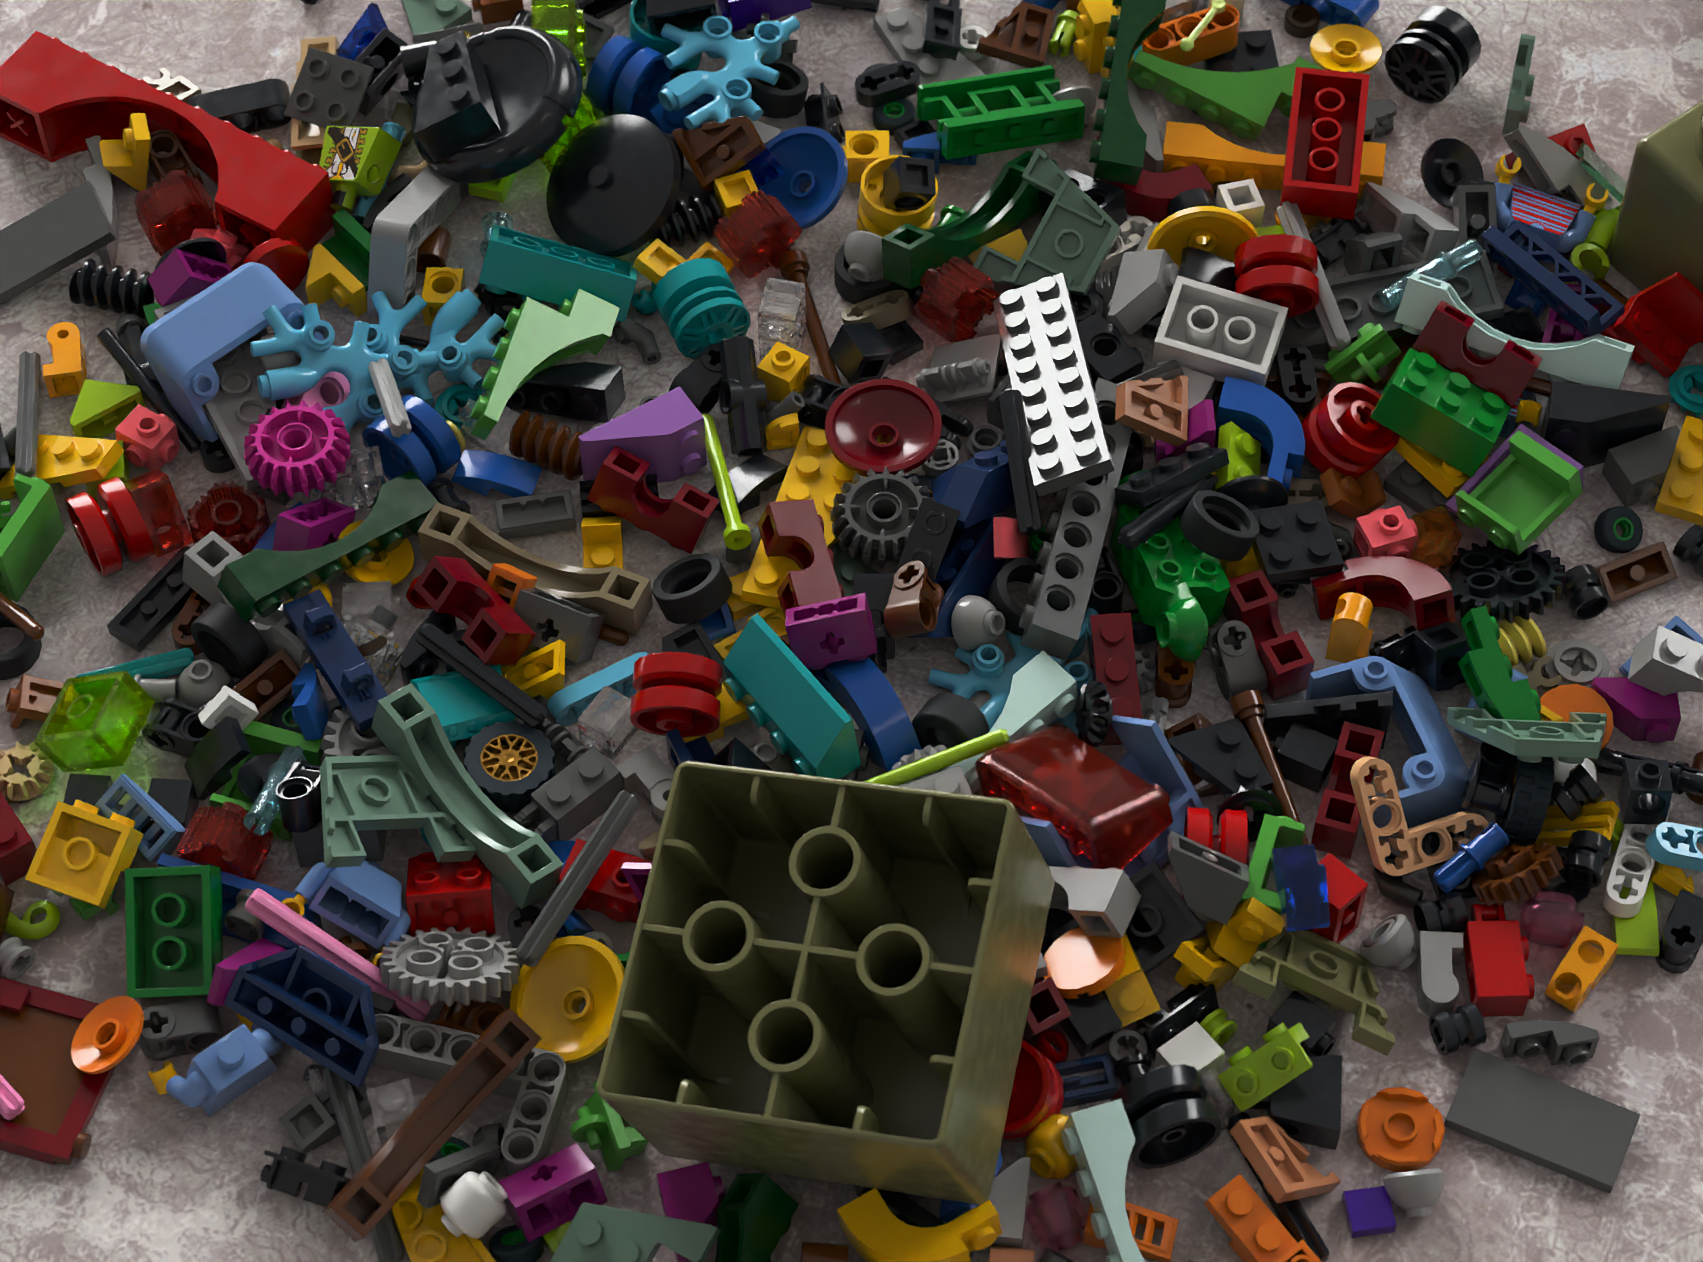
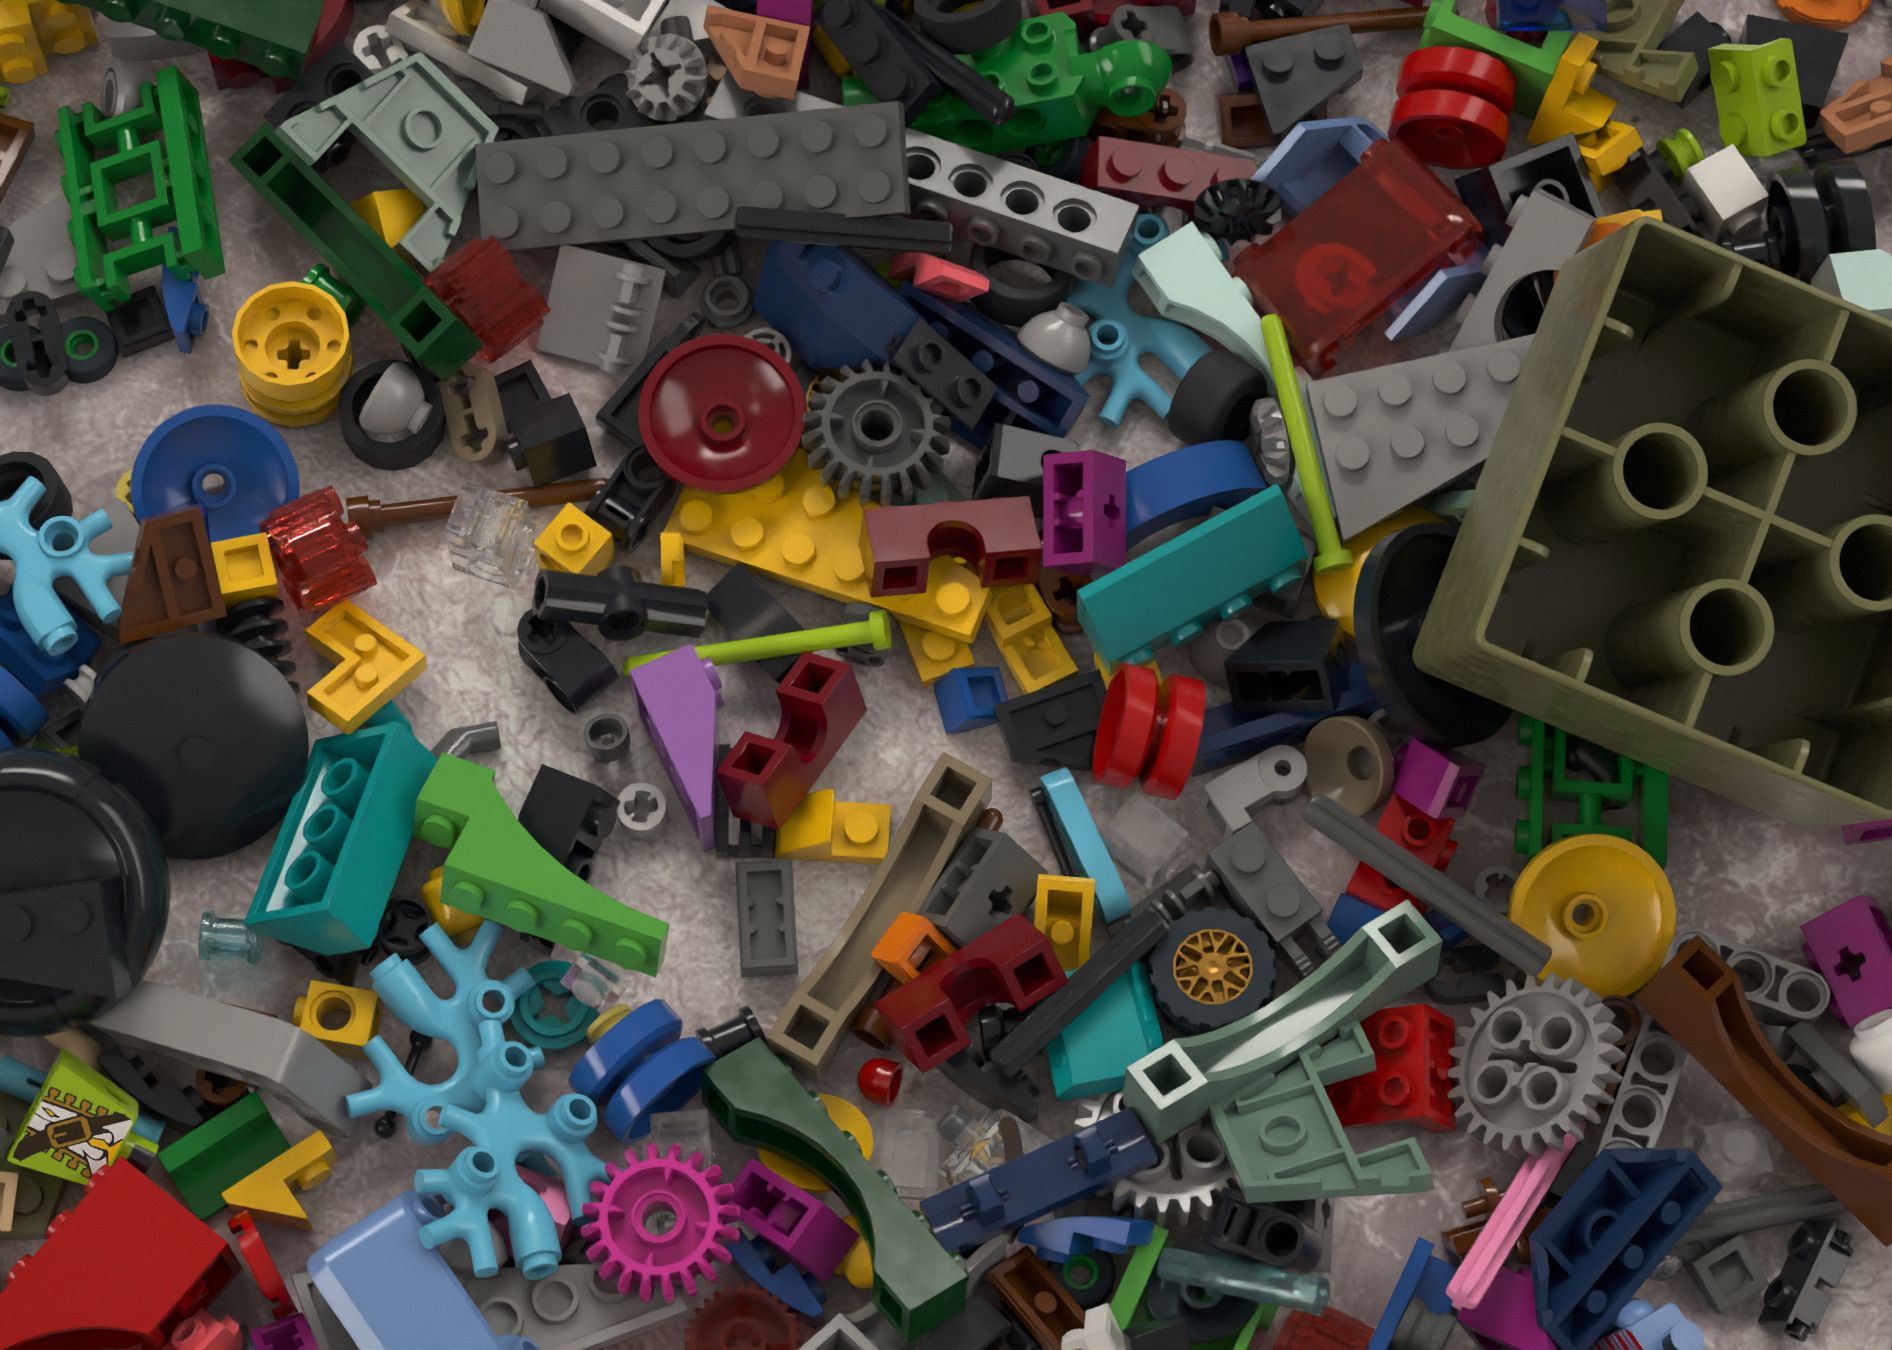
camera: 85 degrees left, 15 degrees up
(356, 899) = (1421, 1217): medium blue torso -> none
(389, 397) = (598, 1077): light grey axle -> none
(489, 470) = (692, 961): blue slope -> none
(546, 445) = (662, 867): reddish brown piece -> none
(604, 1130) = (1766, 893): bright green hips -> none
(692, 588) = (901, 706): black tyre -> none
(700, 305) = (449, 643): teal wheel -> none
(790, 404) = (645, 550): dark grey arm -> none
(824, 113) = (111, 446): black hinge -> none
(863, 149) = (168, 371): yellow brick -> none
(909, 183) = (302, 314): black brick -> none
(912, 602) = (1052, 406): reddish brown piece -> none
(1133, 364) = (685, 86): none -> light grey gear
(1207, 878) = (1524, 103): dark grey slope -> none
(1261, 802) = (1382, 60): black gear -> none

